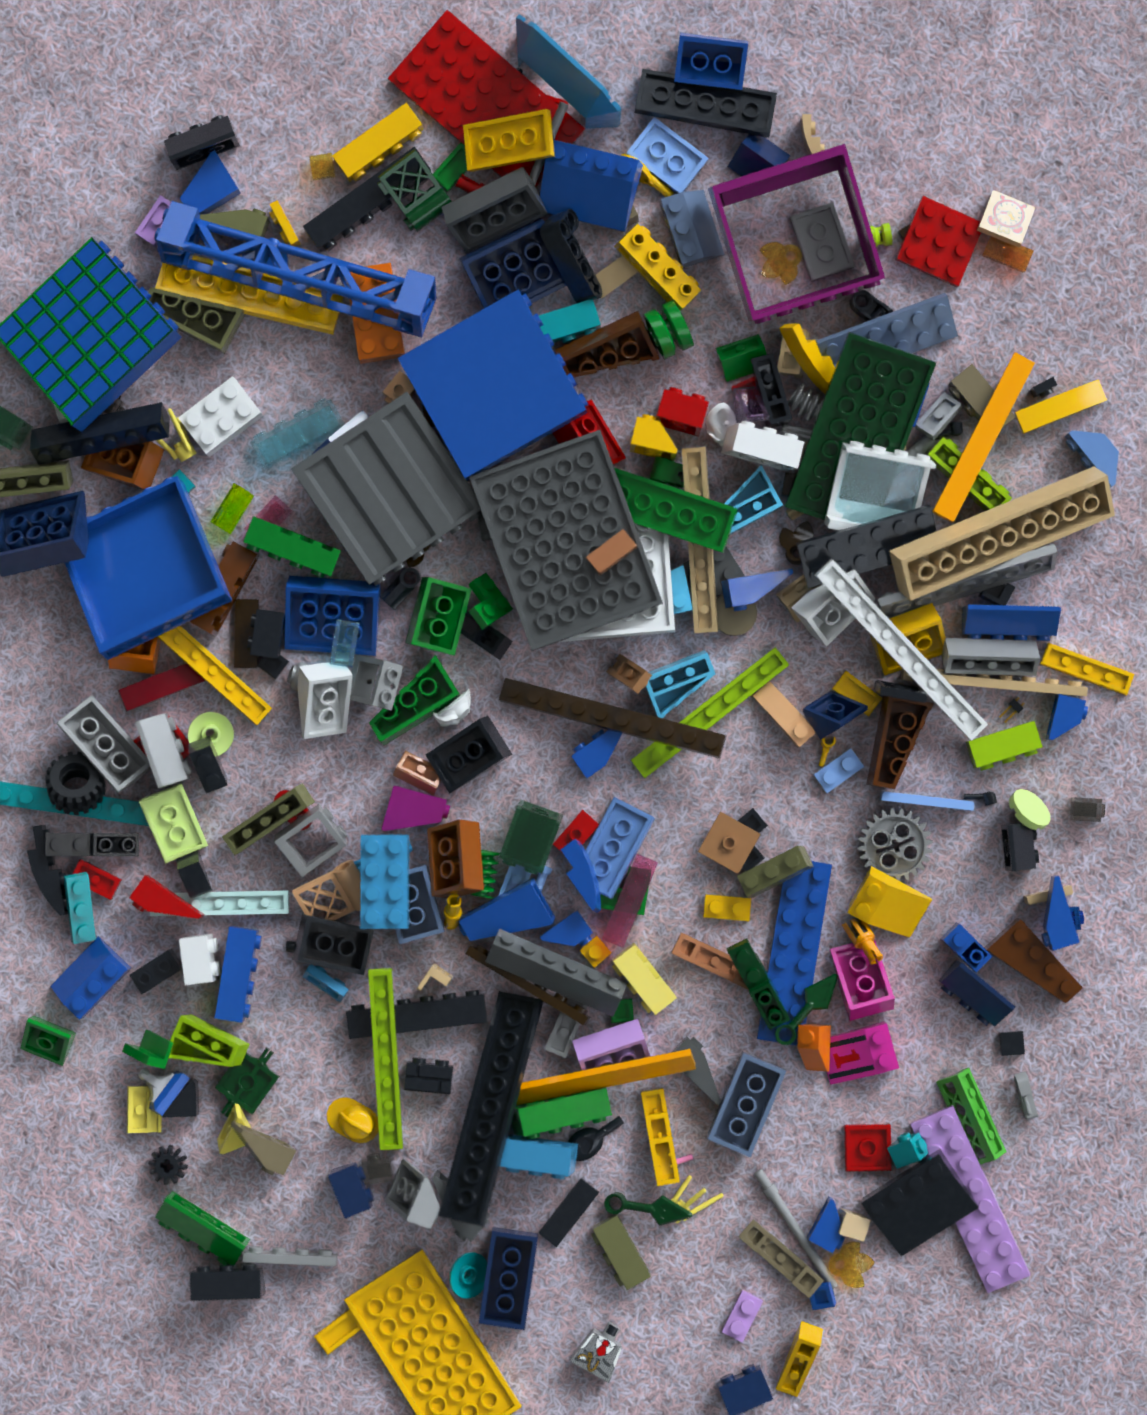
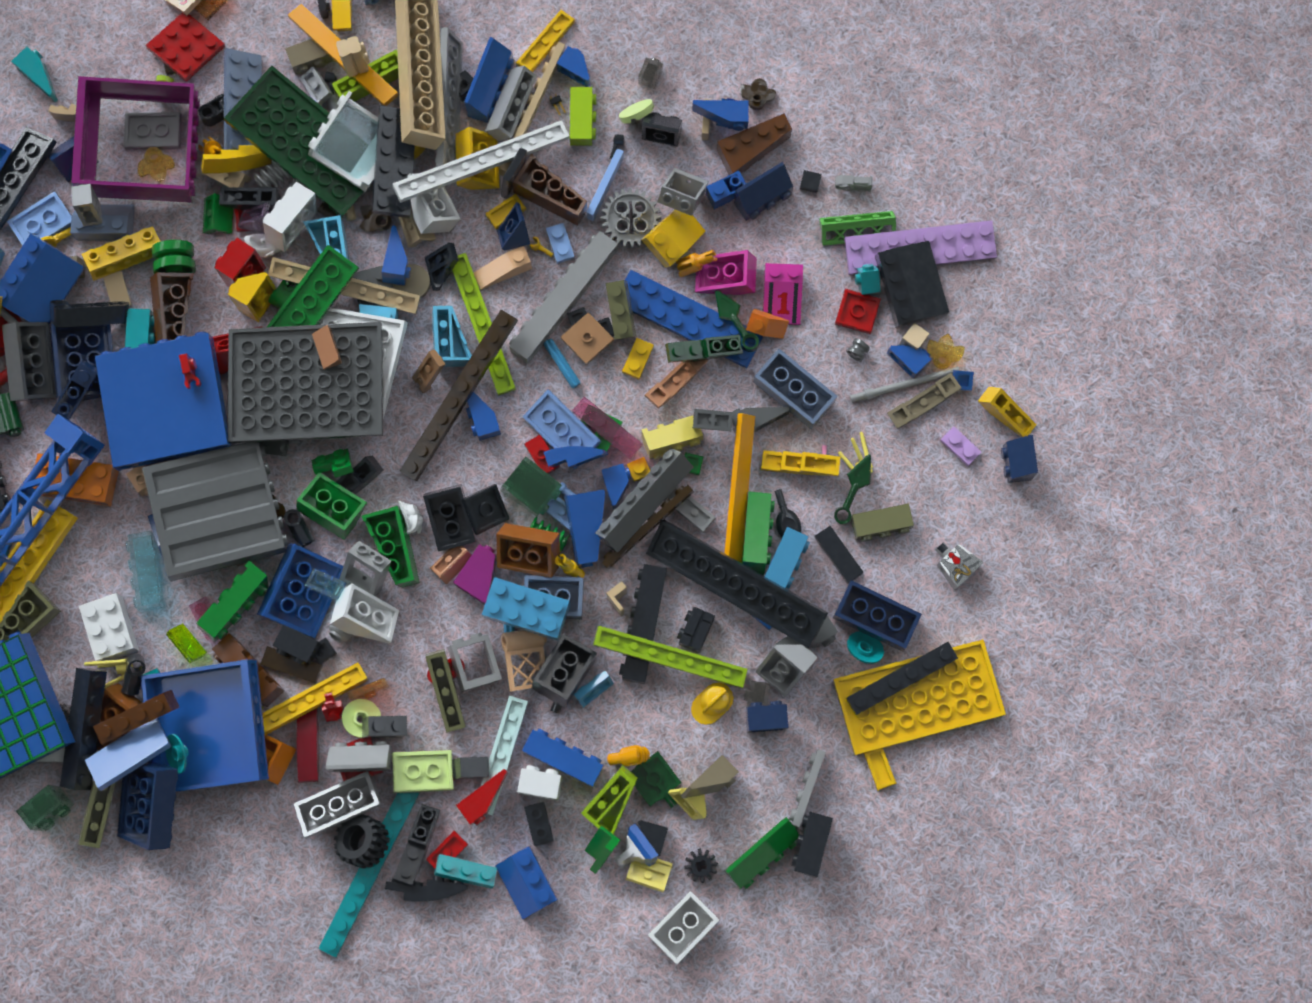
camera: 75 degrees left, 10 degrees down
(47, 1040) = (566, 936): green slope -> none
(86, 496) = (127, 753): none -> tile
(94, 1167) = (683, 927): none -> white brick
(102, 549) = (177, 753): none -> teal dish
(140, 505) = (136, 716): none -> reddish brown arch
(176, 465) = (132, 676): none -> black piece
(209, 699) = (332, 709): none -> red plate
(243, 731) = (369, 690): none -> clear orange plate
(261, 1048) = (629, 756): none -> light orange arm
(446, 1327) = (902, 678): none -> black plate
(474, 280) = (76, 390): none -> dark blue slope
(489, 793) = (485, 509): none -> black plate
(537, 403) = (188, 366): none -> red plate
(611, 1046) = (716, 476): lavender slope -> none
(672, 1022) = (712, 420): none -> dark grey hinge
(692, 821) = (562, 364): none -> dark azure axle
(695, 210) = (86, 204): none -> light grey brick
(764, 642) = (440, 264): none -> black wing
(772, 798) = (563, 297): none -> light grey brick
(817, 323) = (210, 147): none -> light orange arm
(819, 1162) = (858, 350): none -> dark grey wheel
(851, 76) = (32, 67): none -> teal slope
(927, 896) = (678, 181): none -> light grey window
(977, 456) = (353, 56): none -> tan brick
(1106, 945) = (757, 93): none -> dark brown plate

